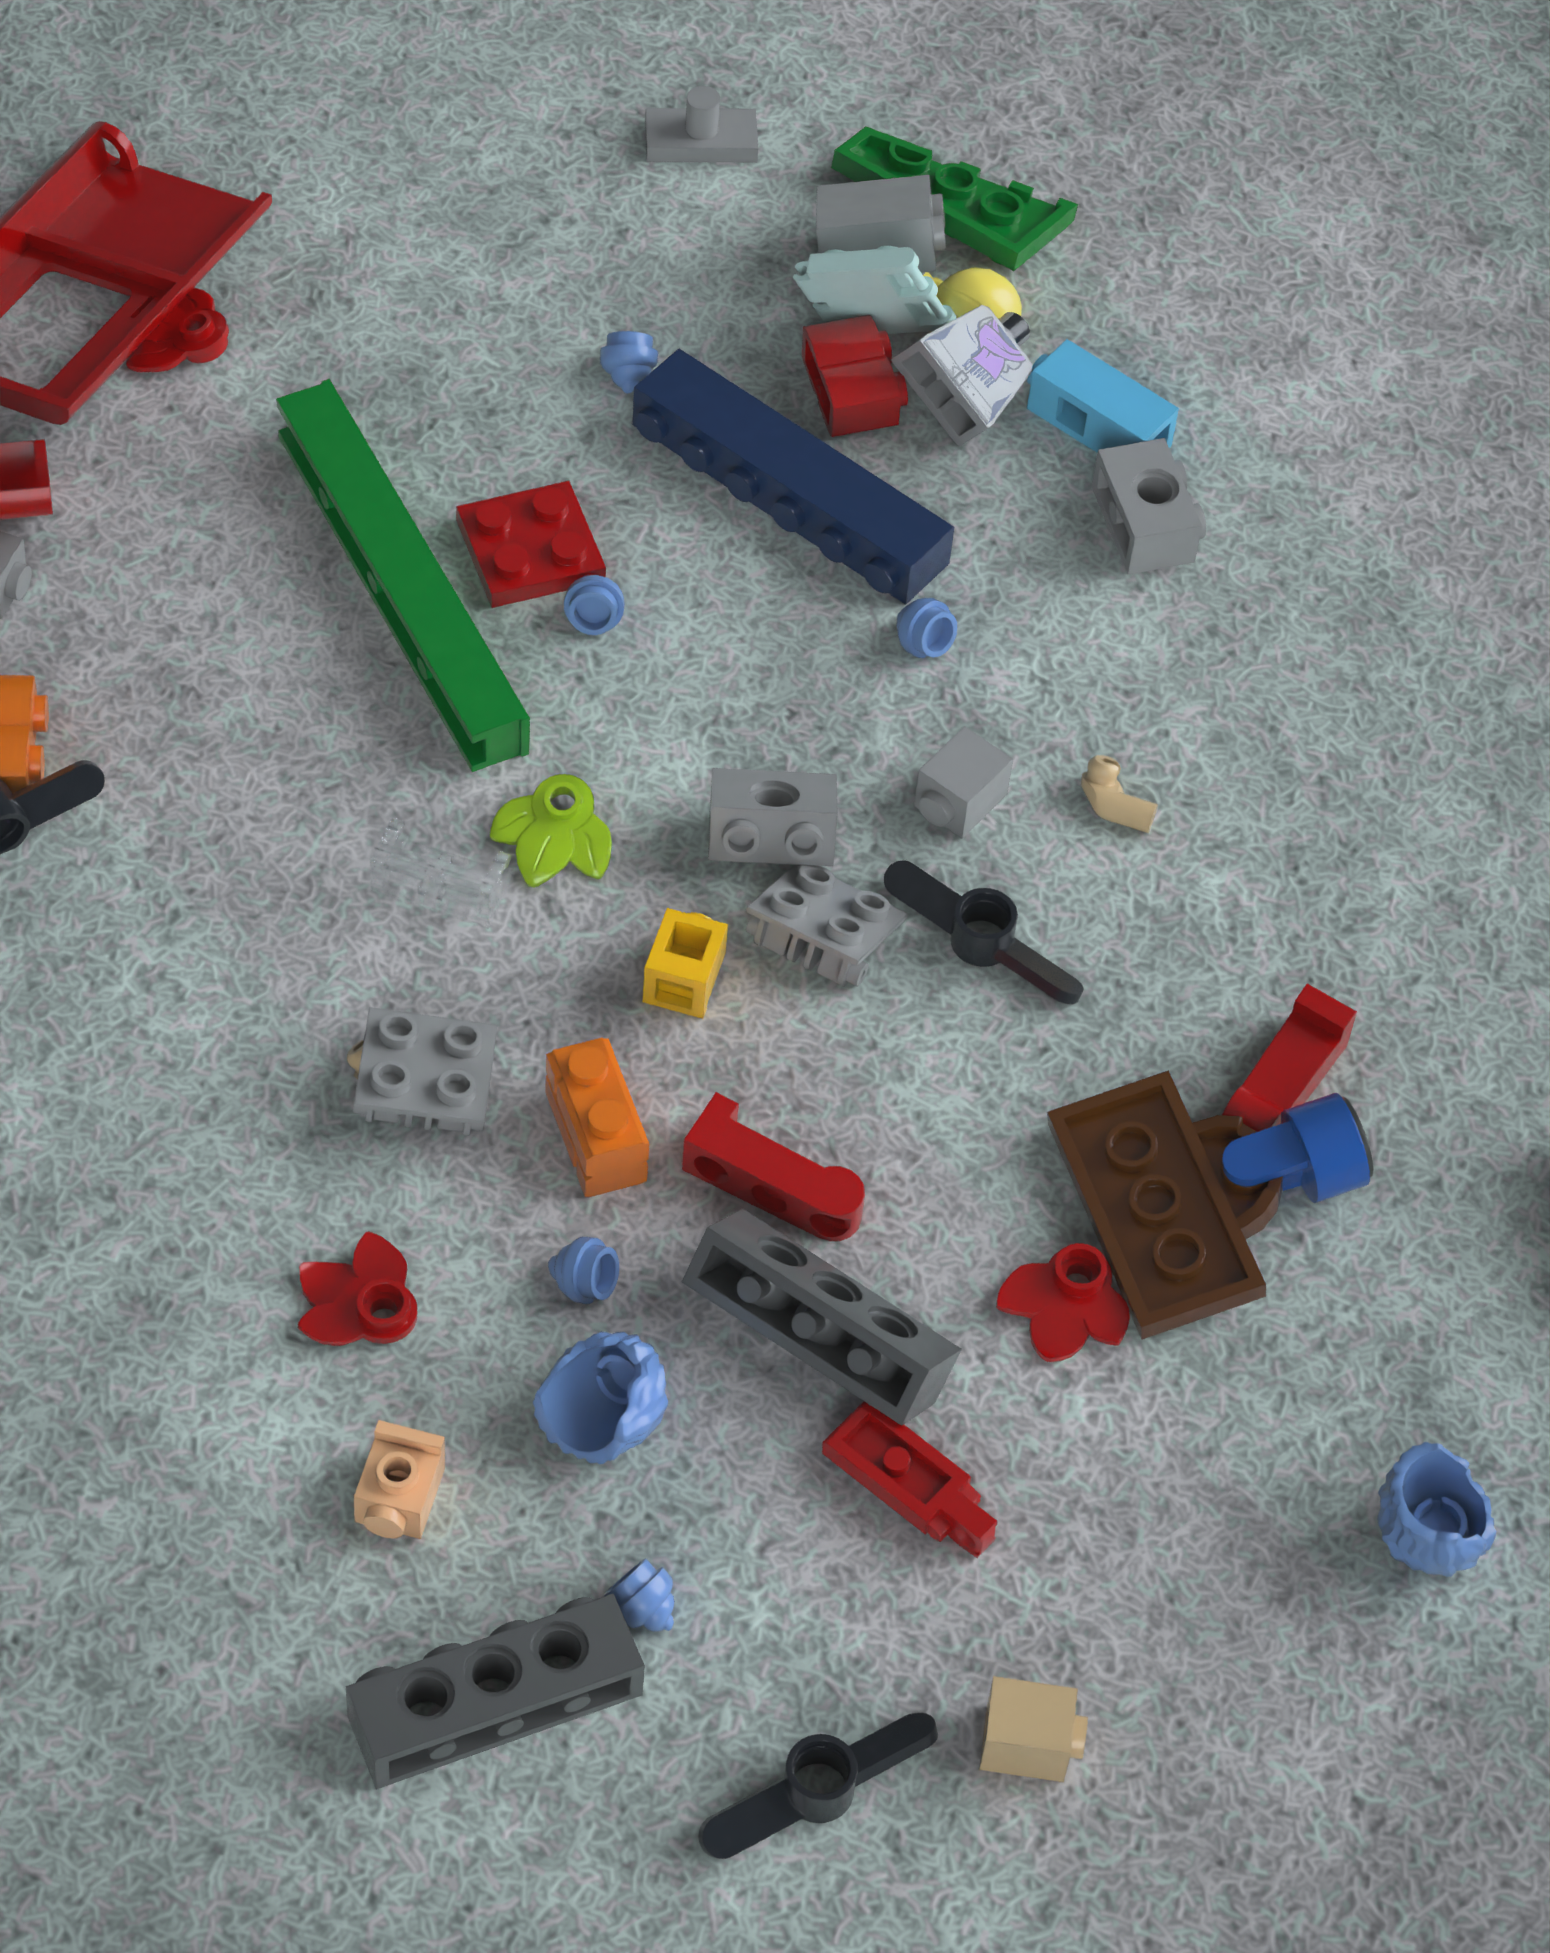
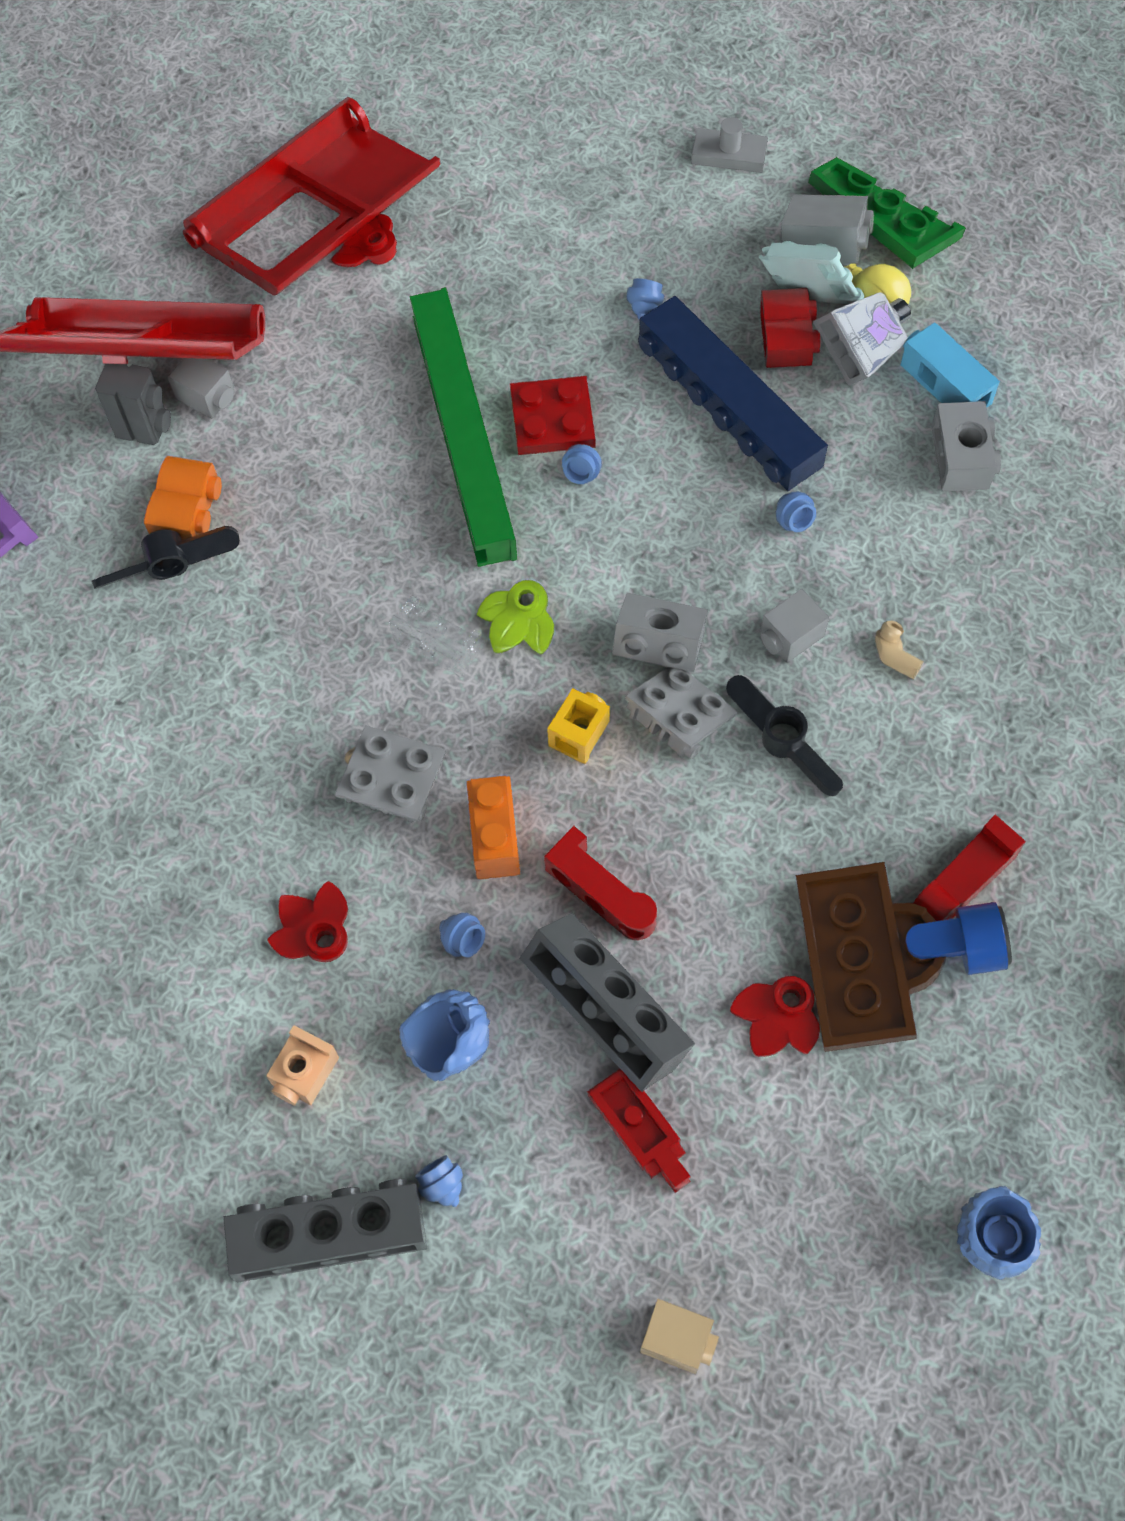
camera: 20 degrees right, 10 degrees up
(788, 1801) = (495, 1353): black piece -> none

